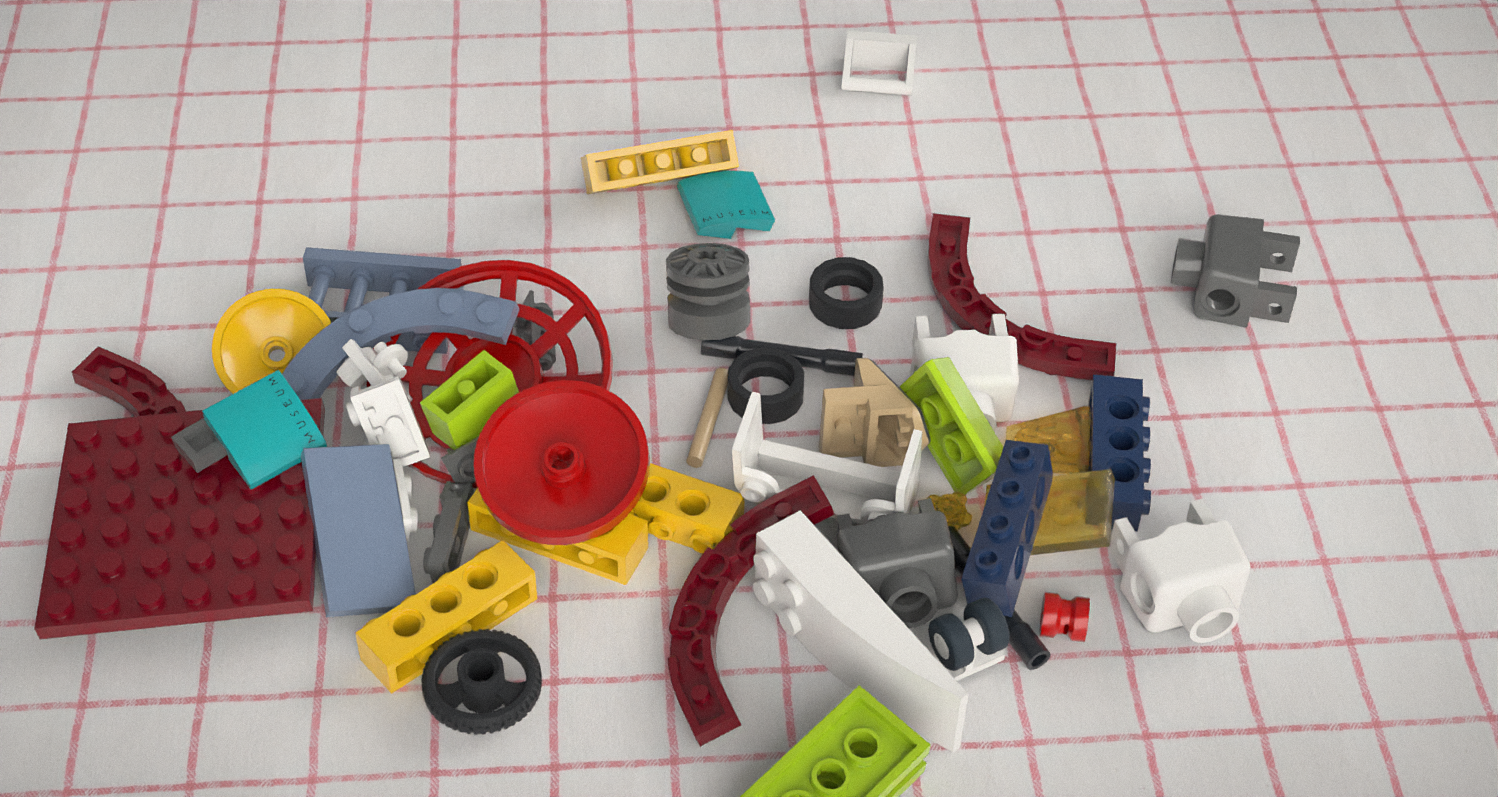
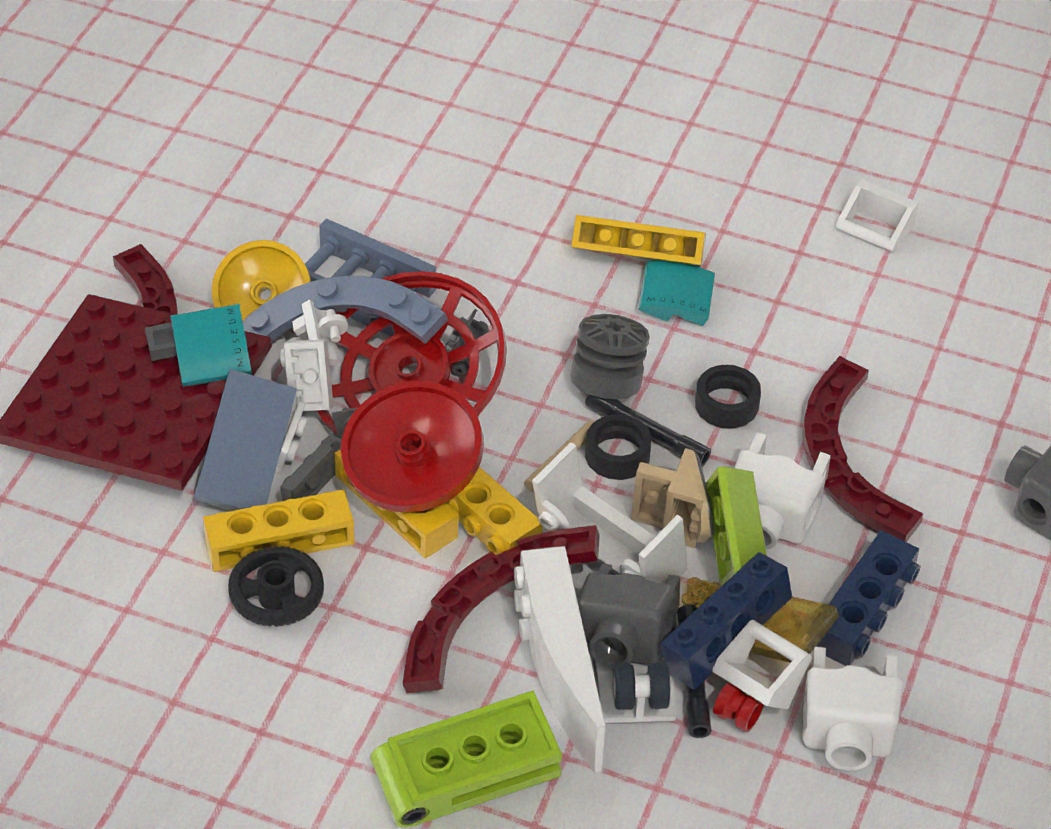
camera: 25 degrees right, 0 degrees up
(468, 400) = (369, 373): lime brick -> none
(1064, 433) = (818, 571): clear yellow wing -> none
(1068, 584) = (773, 694): none -> white tile

